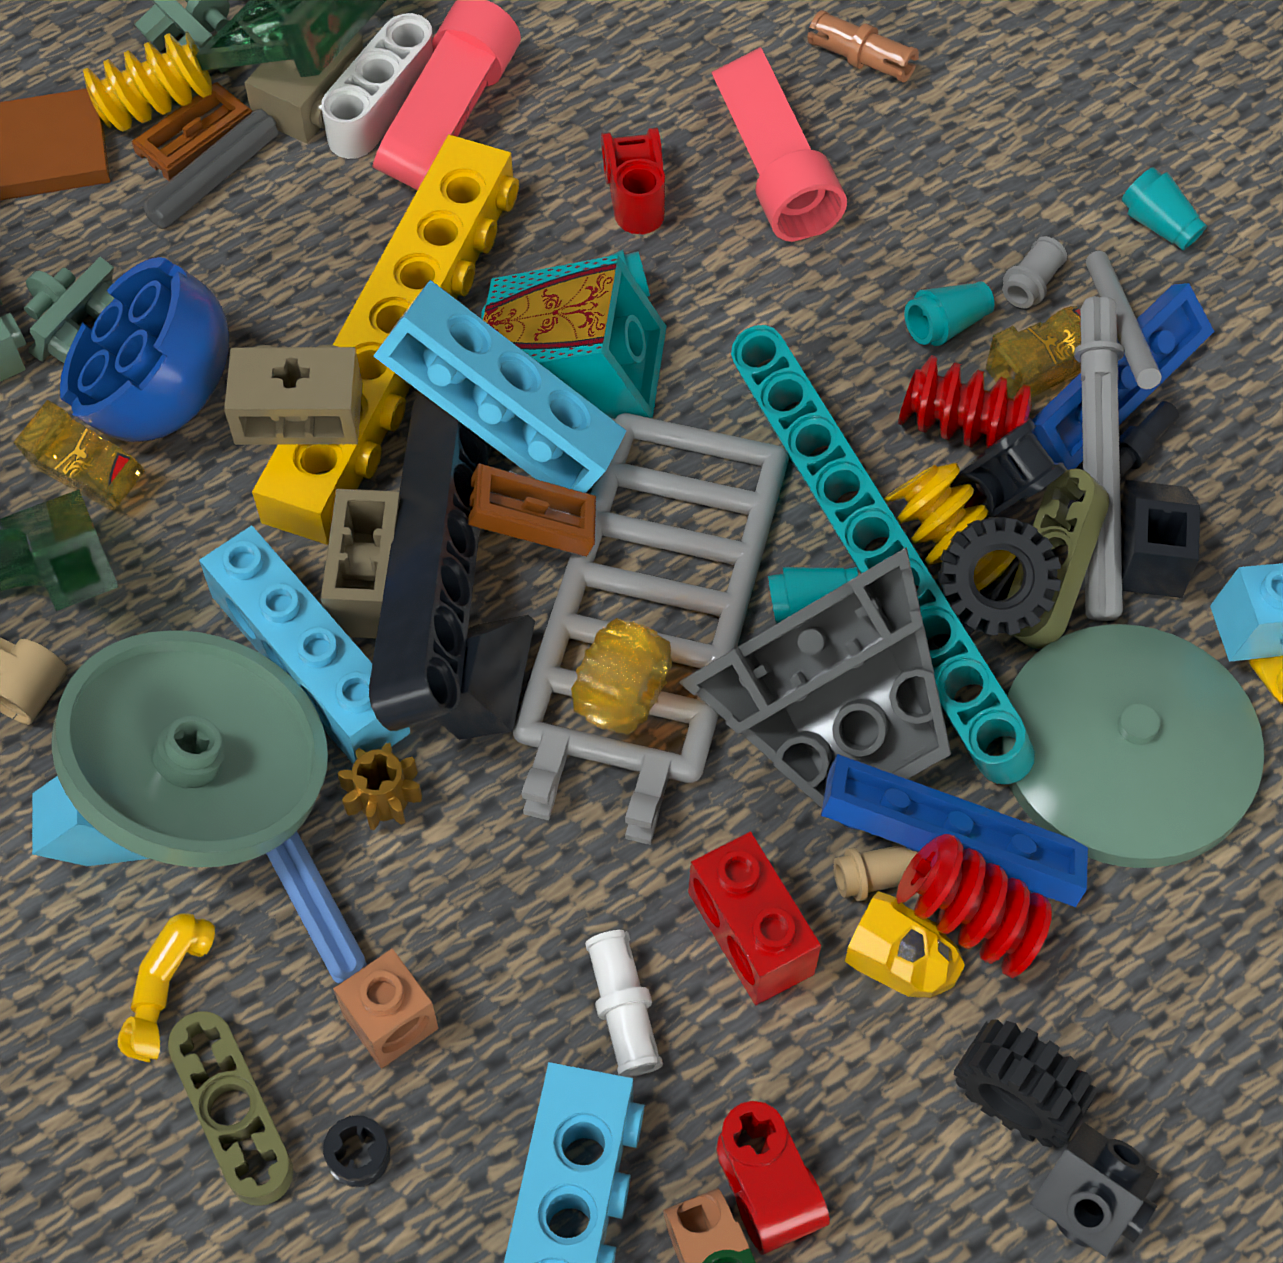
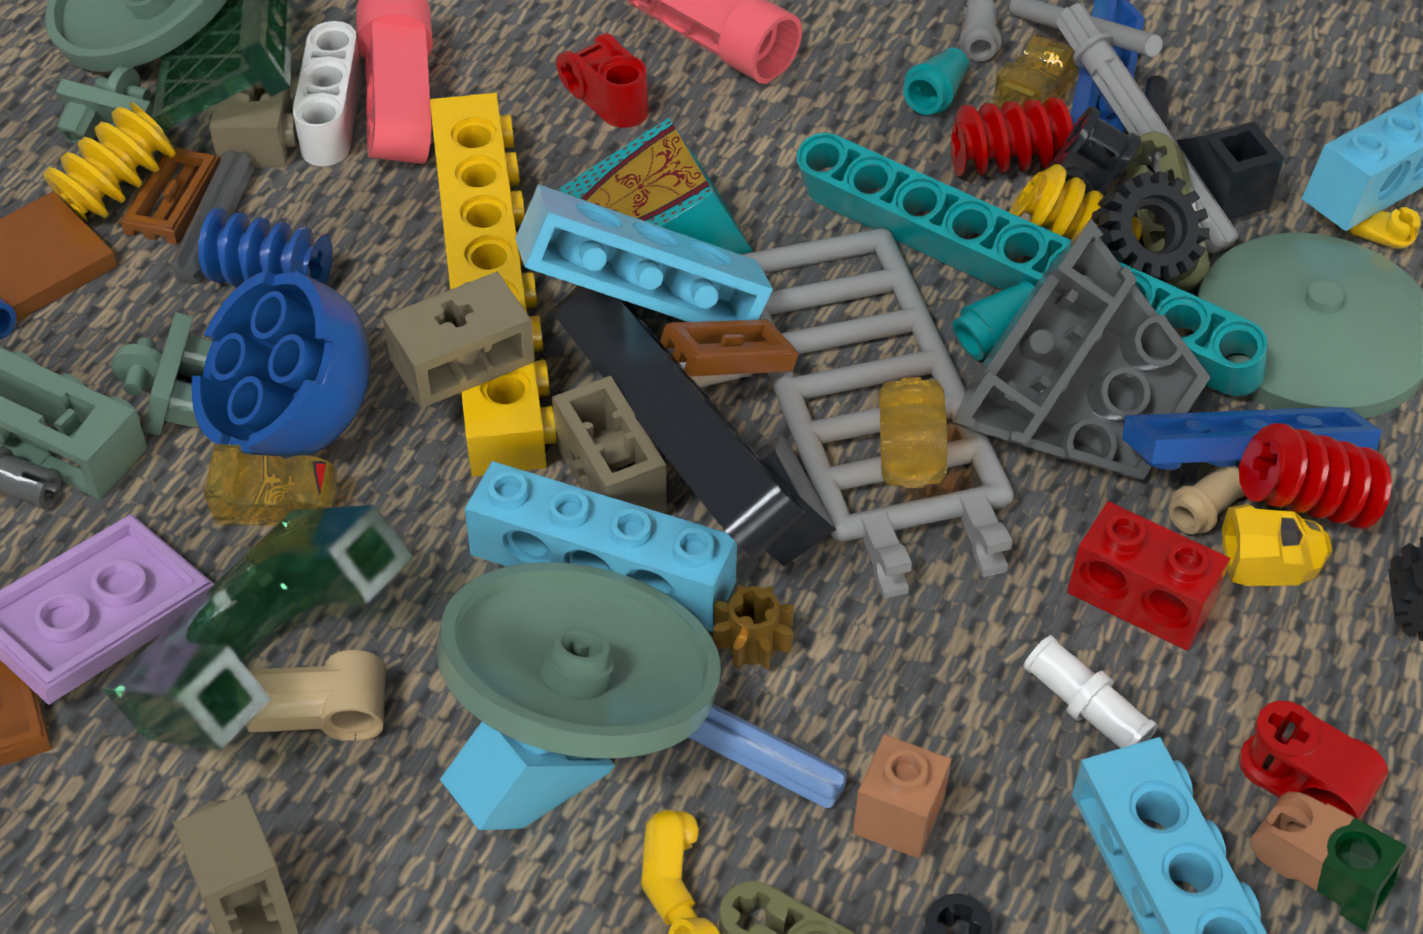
camera: 30 degrees left, 10 degrees down
(217, 229) = (237, 249): none -> blue piece

